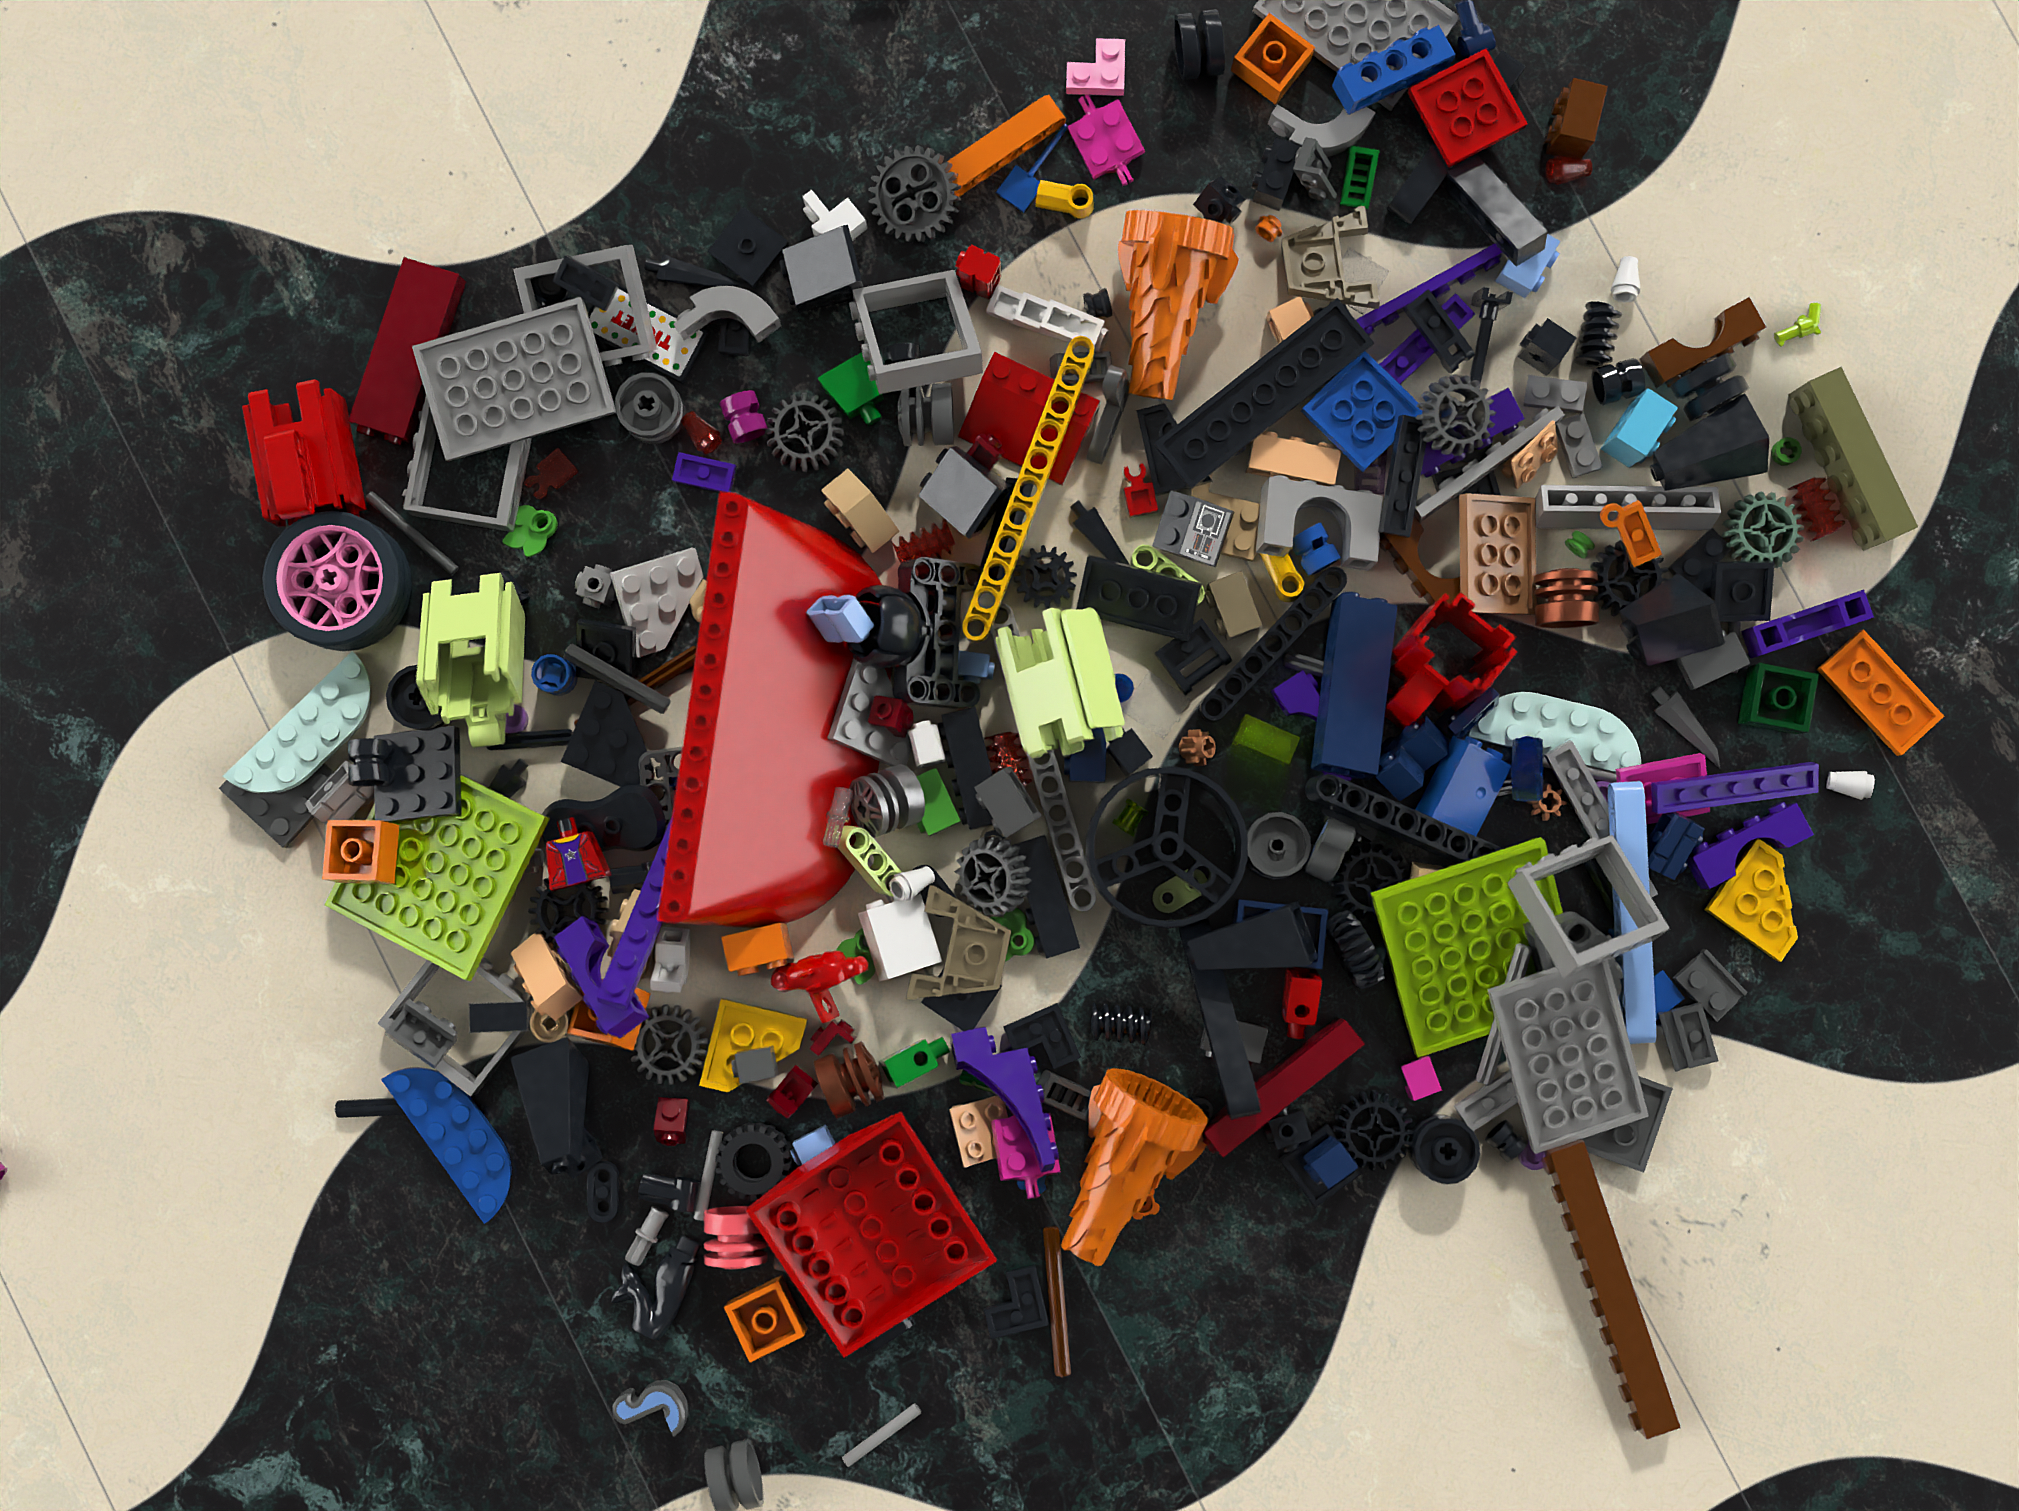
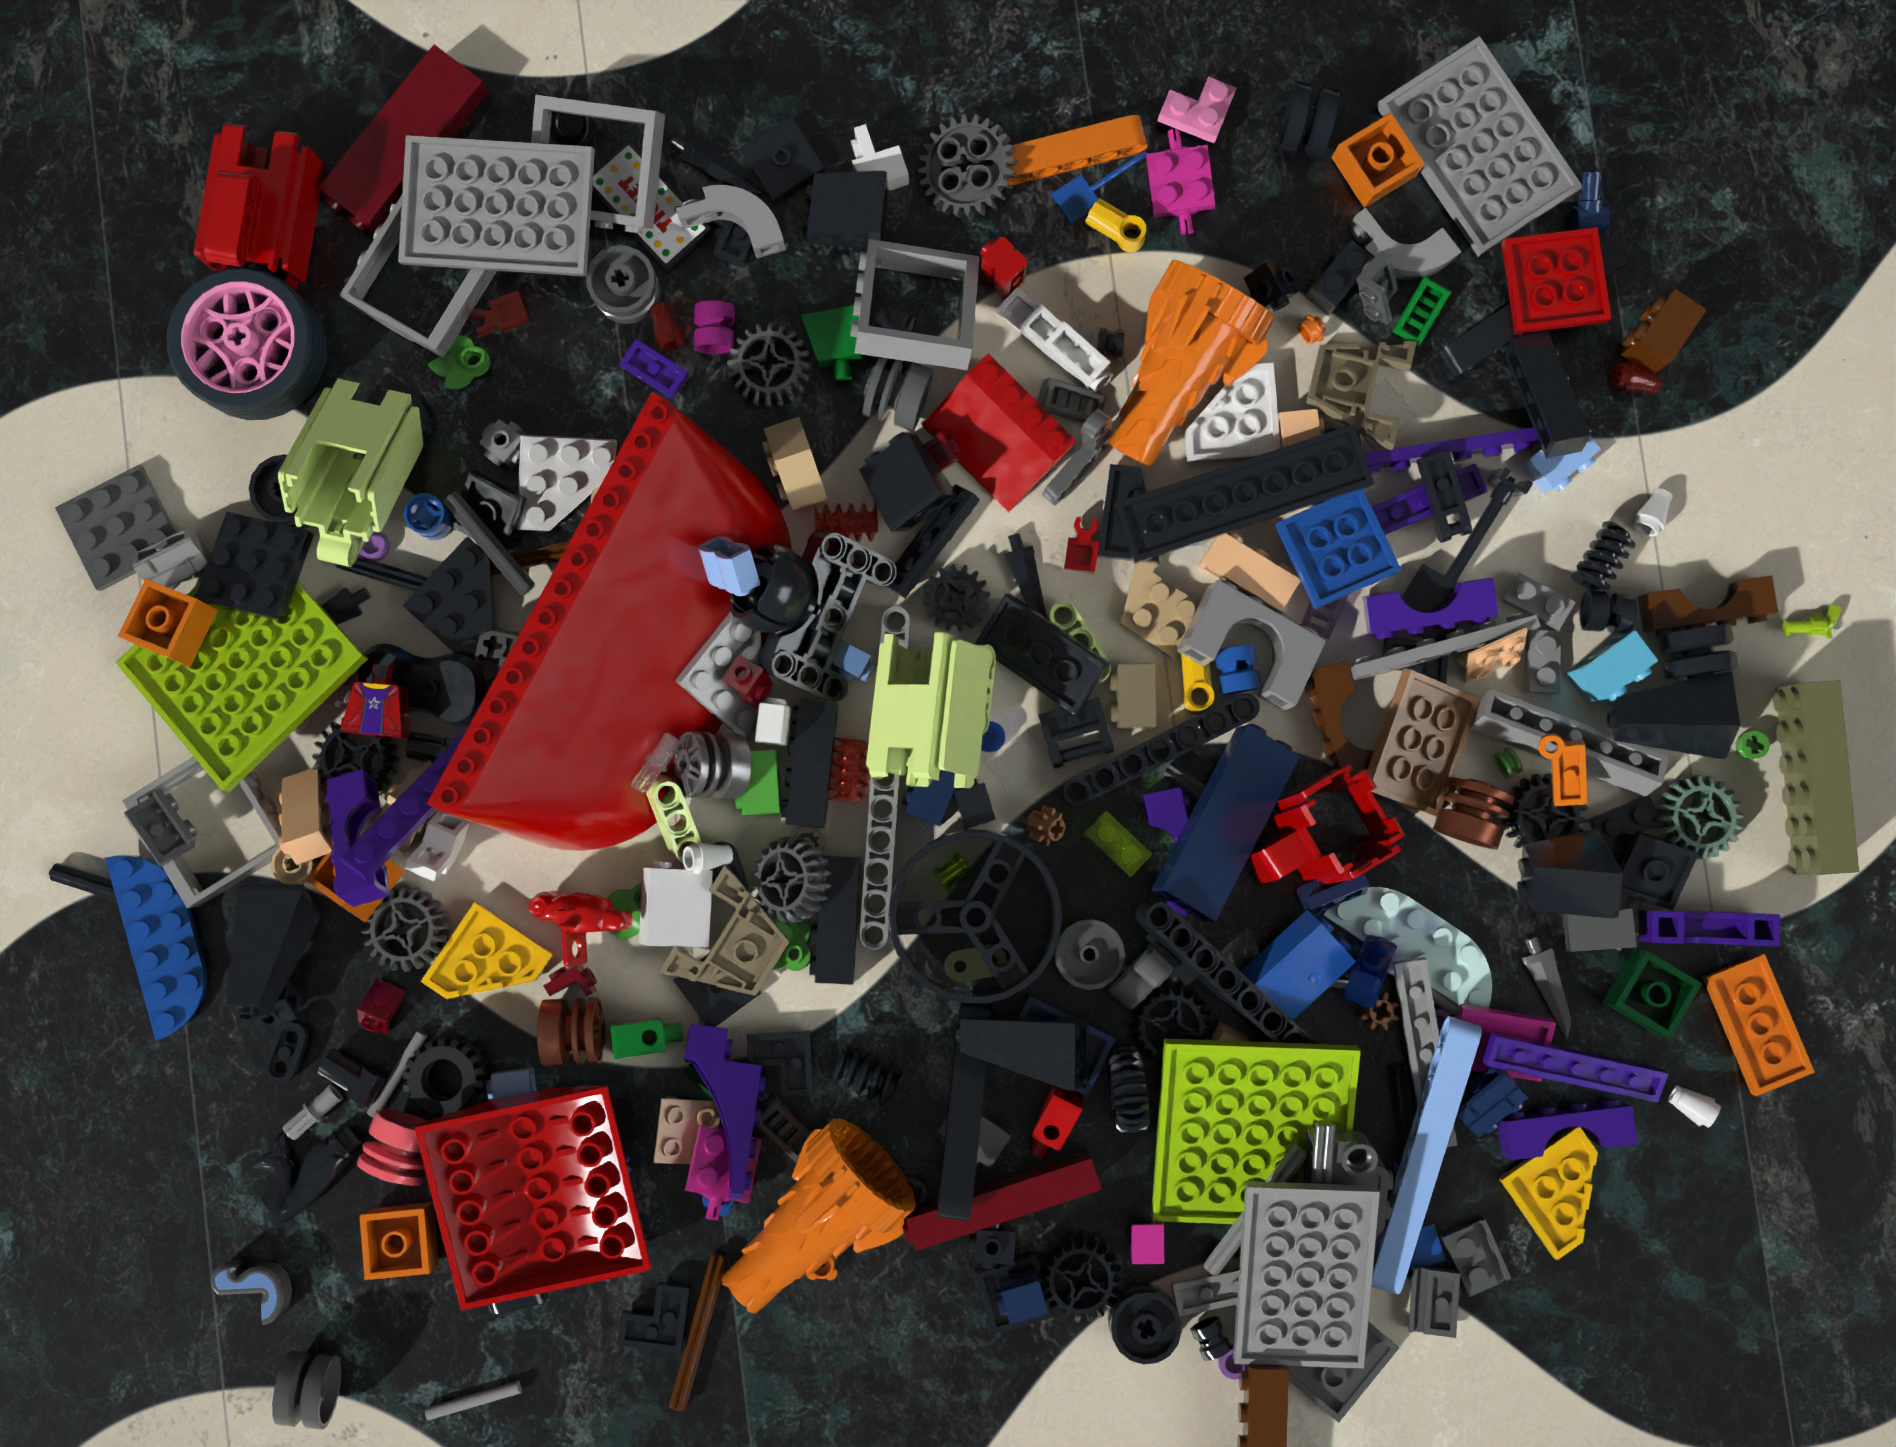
camera: 15 degrees right, 0 degrees up
(307, 732) = (162, 484): light aqua plate -> none
(368, 762) = (206, 539): black wheel -> none
(410, 532) = (341, 323): dark grey bar -> none
(499, 1017) = (244, 839): black tile -> none
(585, 283) = (602, 134): black plate -> none
(755, 1064) = (482, 981): dark grey brick -> none
(757, 947) = (527, 864): orange brick -> none
(791, 1092) = (510, 1022): dark red bracket -> none
(1007, 802) = (832, 811): dark grey brick -> none
(1028, 474) = (974, 488): yellow beam -> none
(1193, 528) = (1122, 604): black slope -> none
(1234, 331) = (1238, 420): none -> white plate
(1357, 93) = (1450, 226): blue brick -> none
(1403, 478) = (1354, 628): black plate -> none
(1409, 755) = (1256, 912): dark blue brick -> none
(1440, 400) = (1419, 565): dark grey gear -> none
(1545, 346) = (1547, 549): black brick -> none
(1624, 881) = (1426, 1123): light grey window -> none
(1817, 507) = (1763, 813): clear red piece -> none

